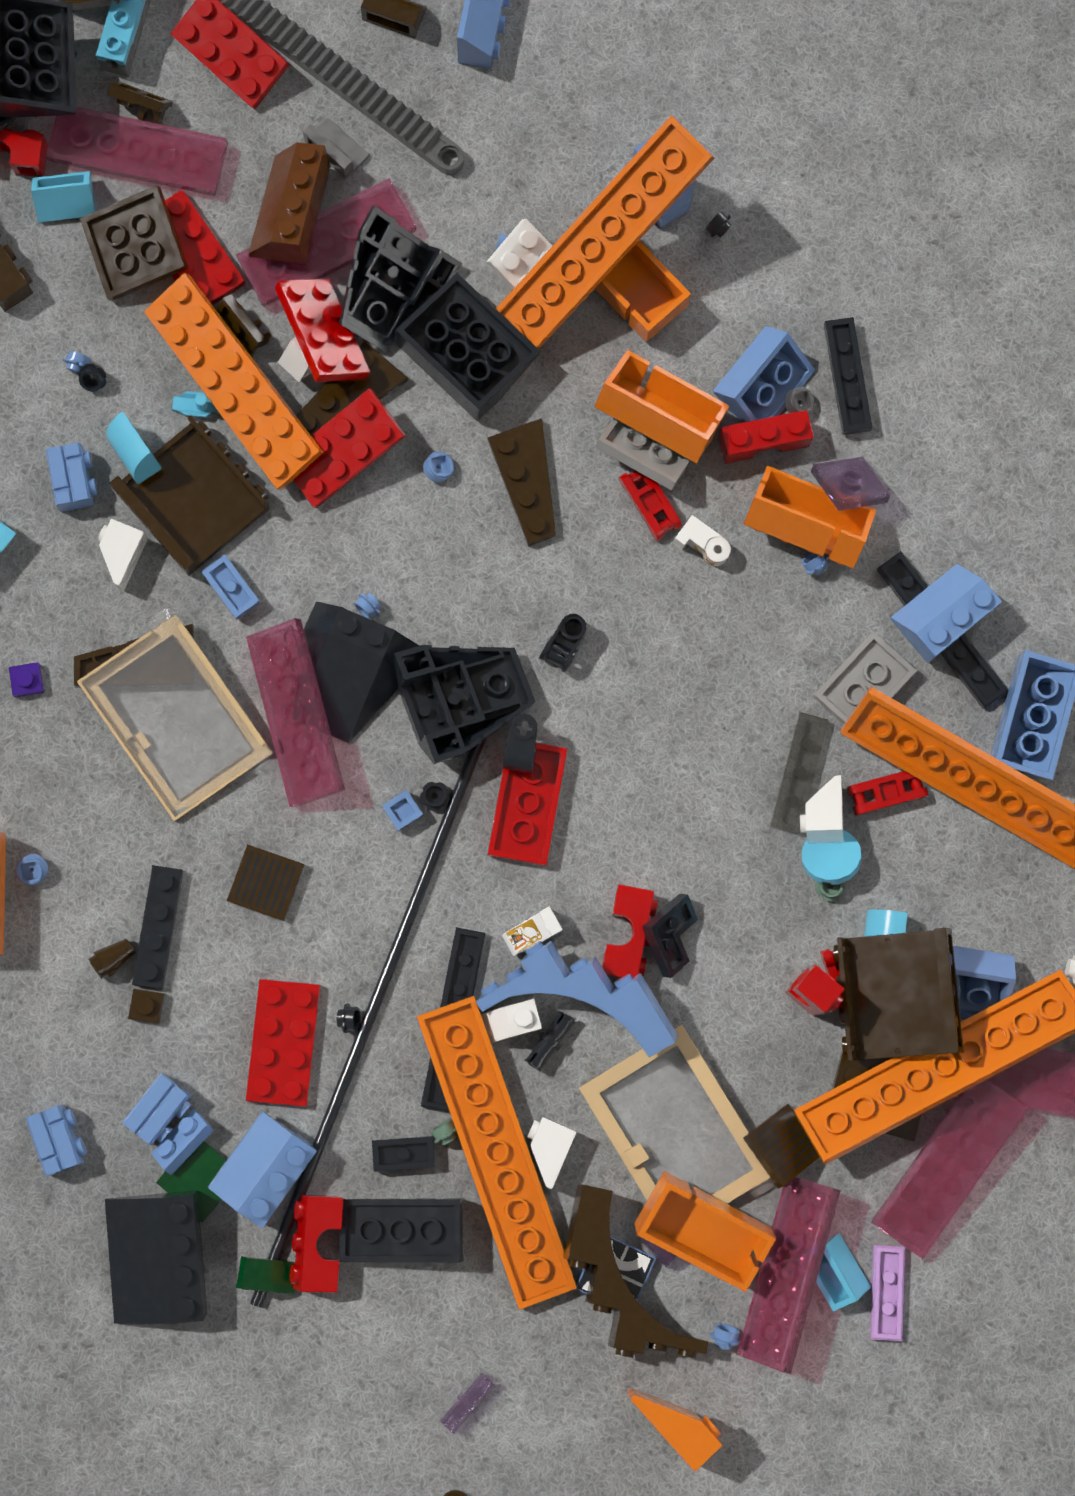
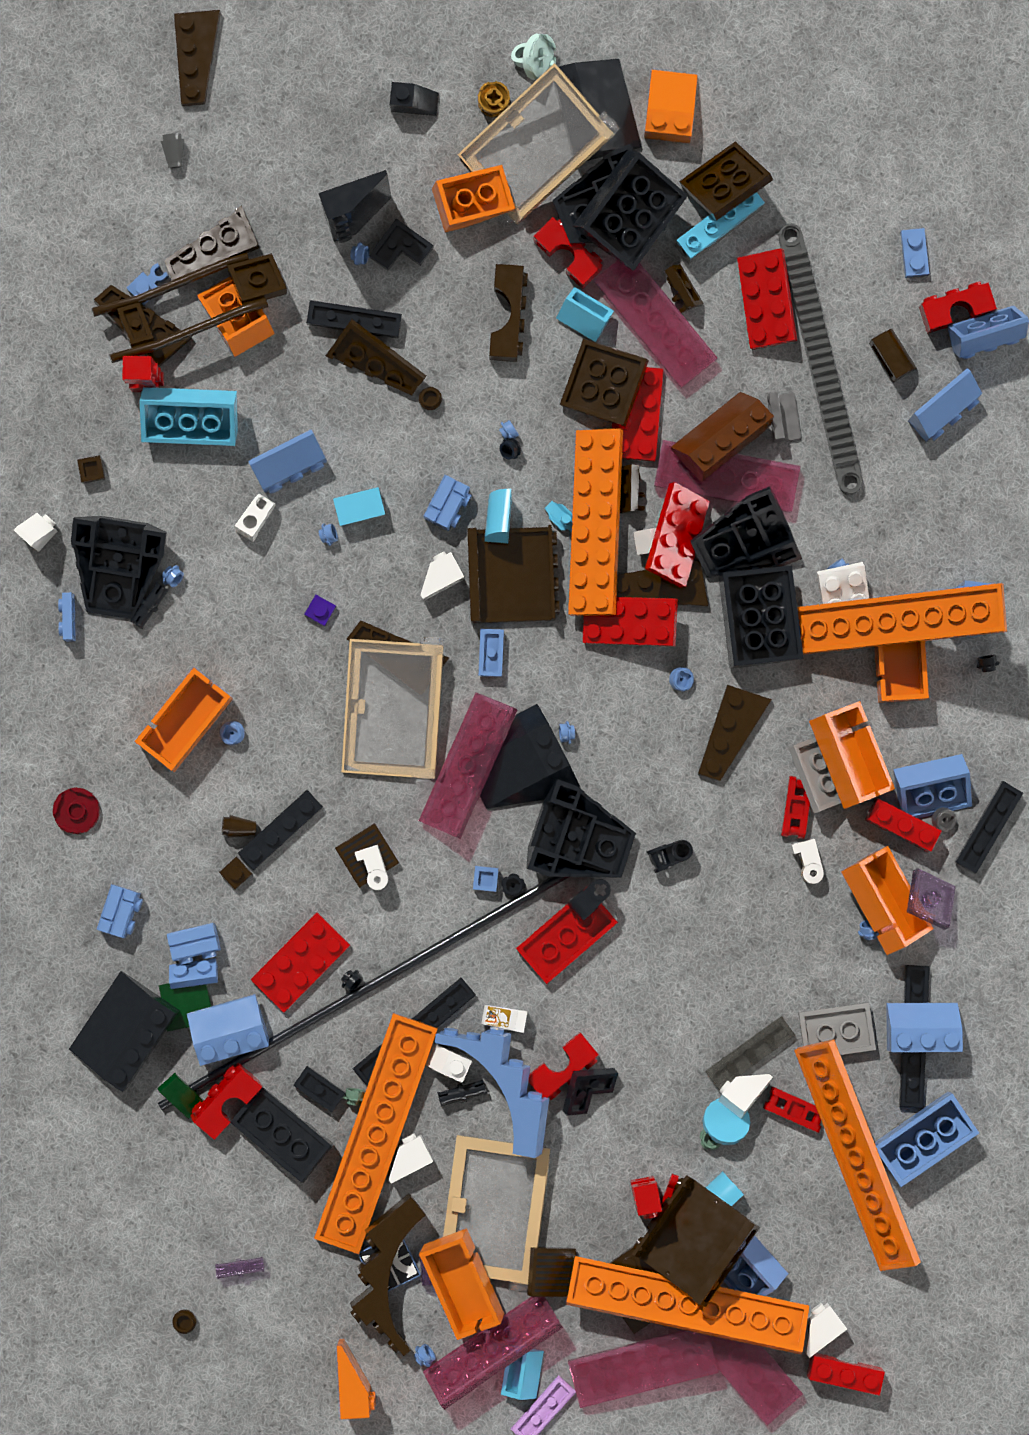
camera: 45 degrees right, 5 degrees up
(289, 890) = (377, 874): none -> white leg

